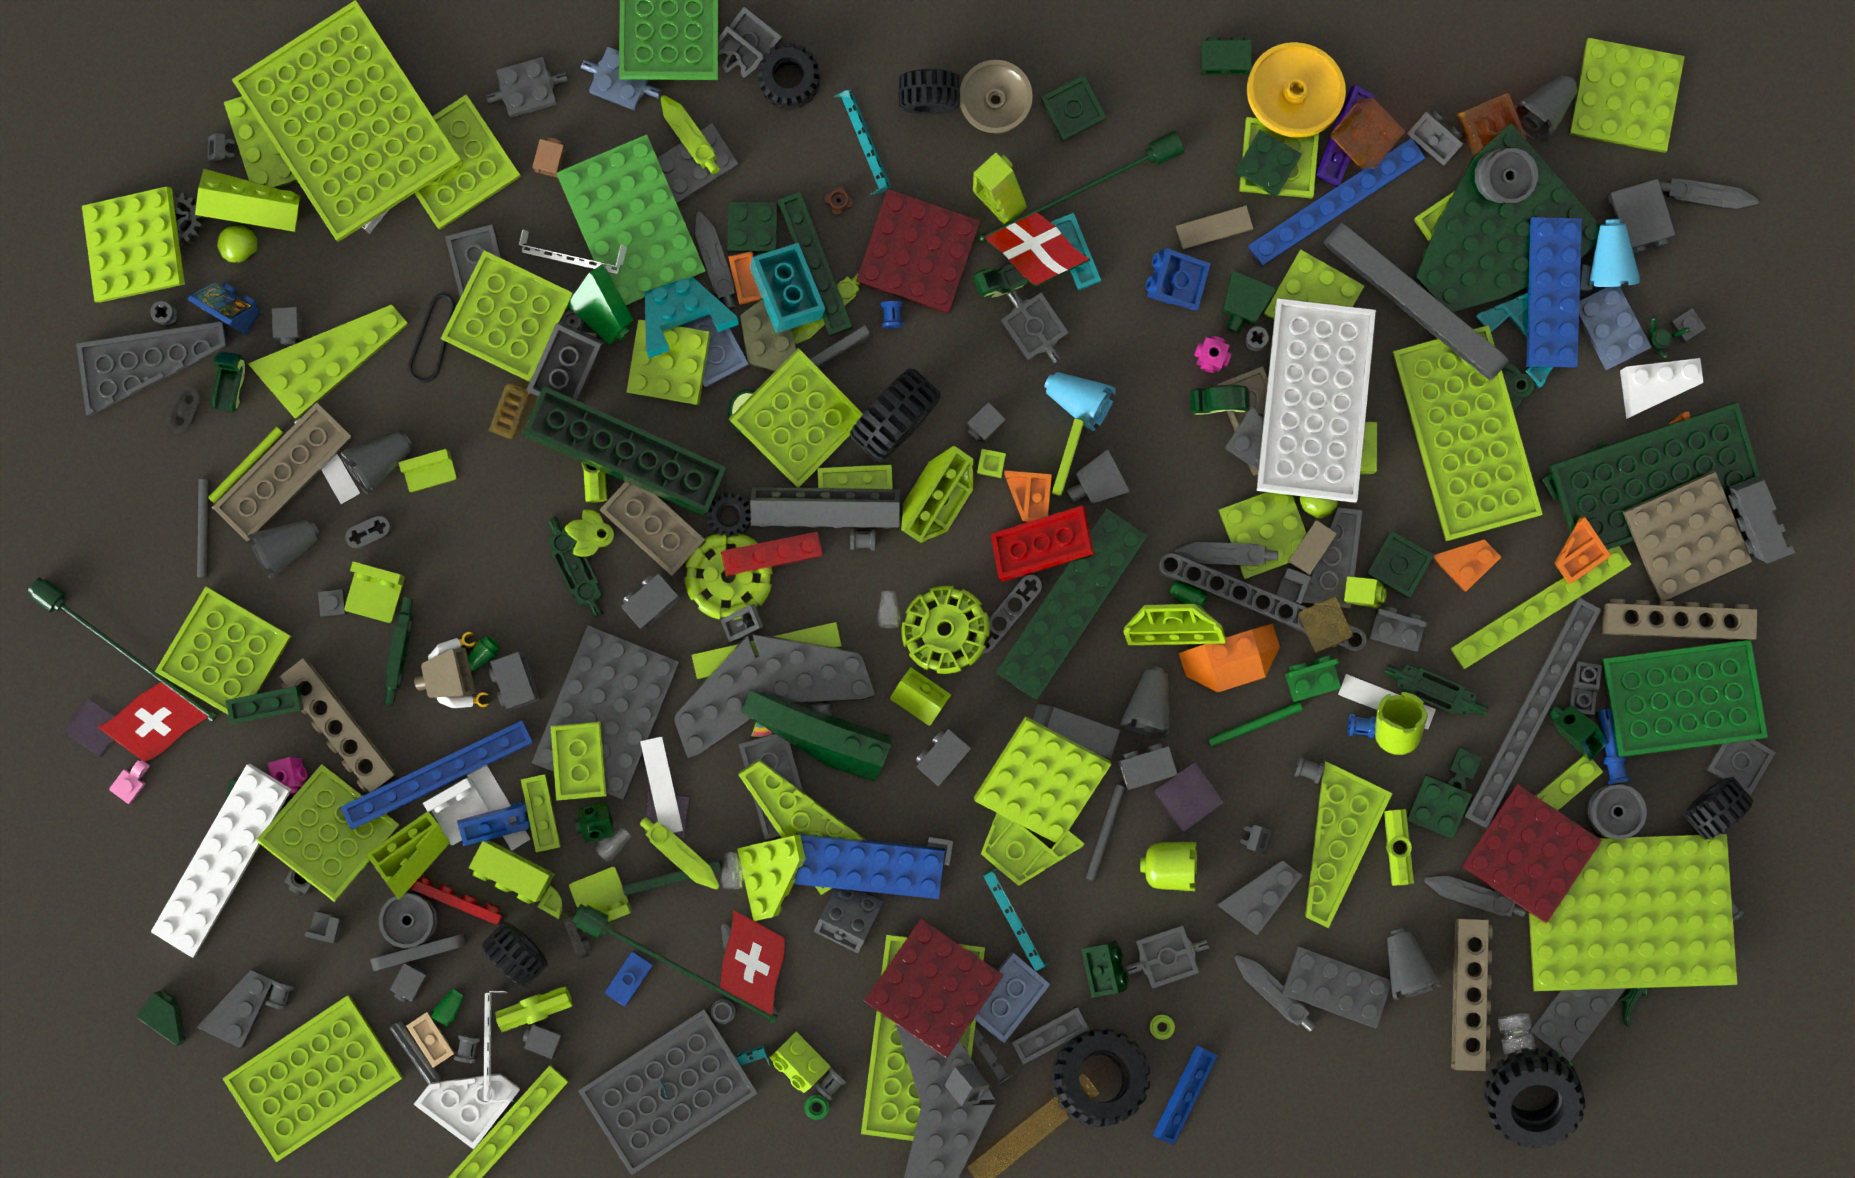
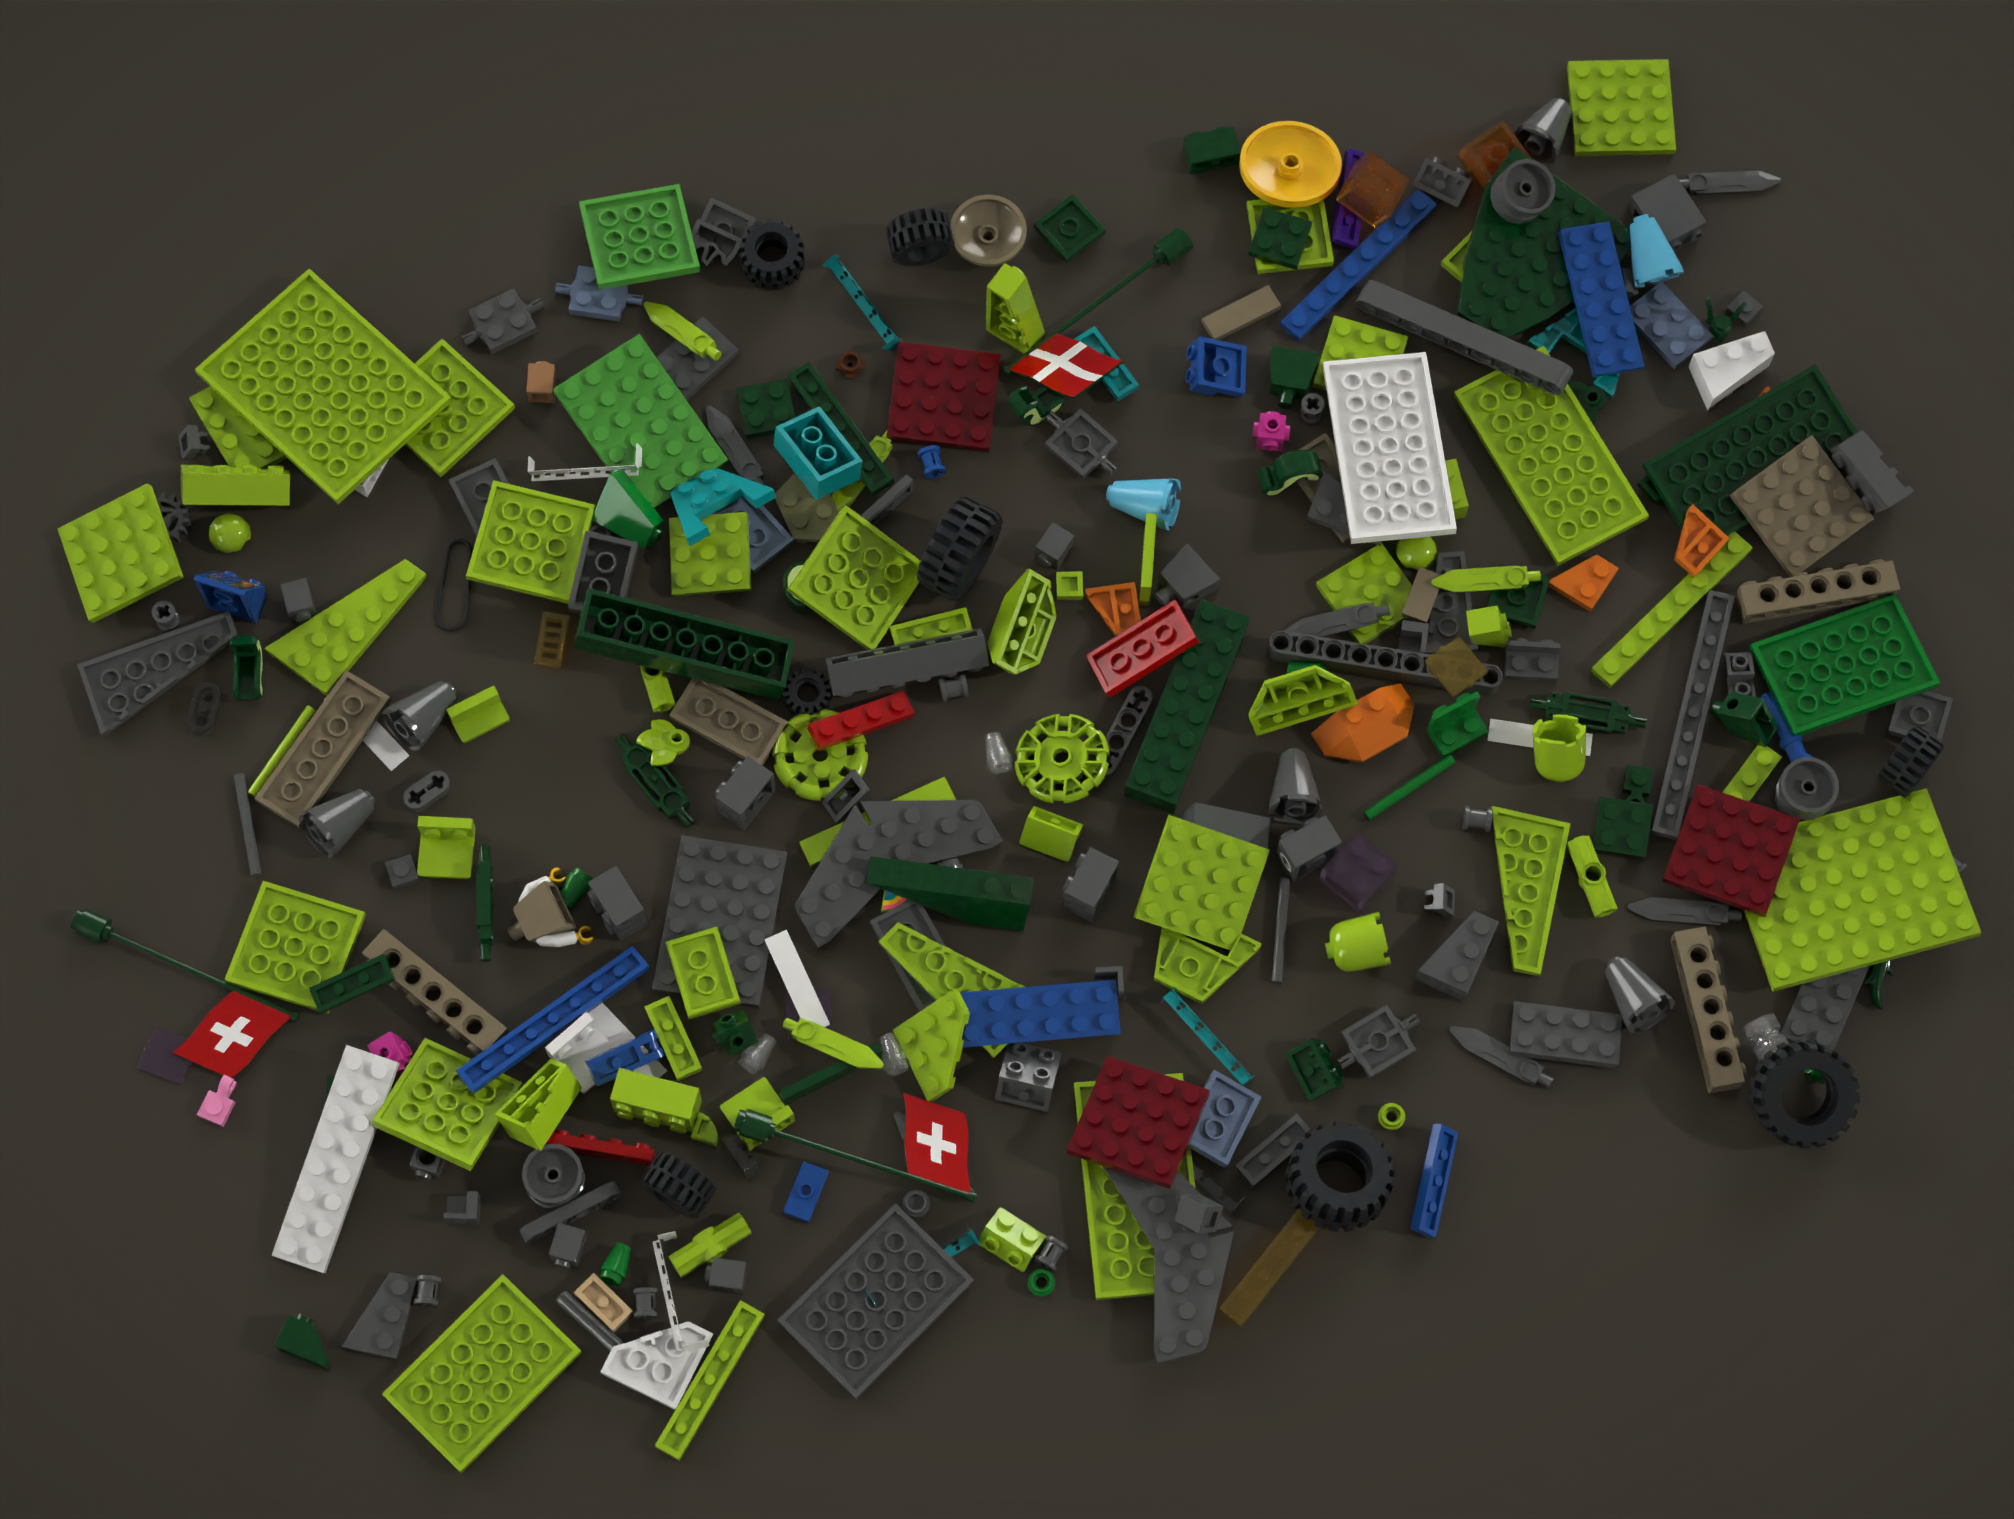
camera: 20 degrees left, 15 degrees down
(744, 282) = (772, 463): orange tile -> none
(1361, 726) = (1520, 764): blue bush -> none
(1374, 544) = (1486, 579): none -> lime piece

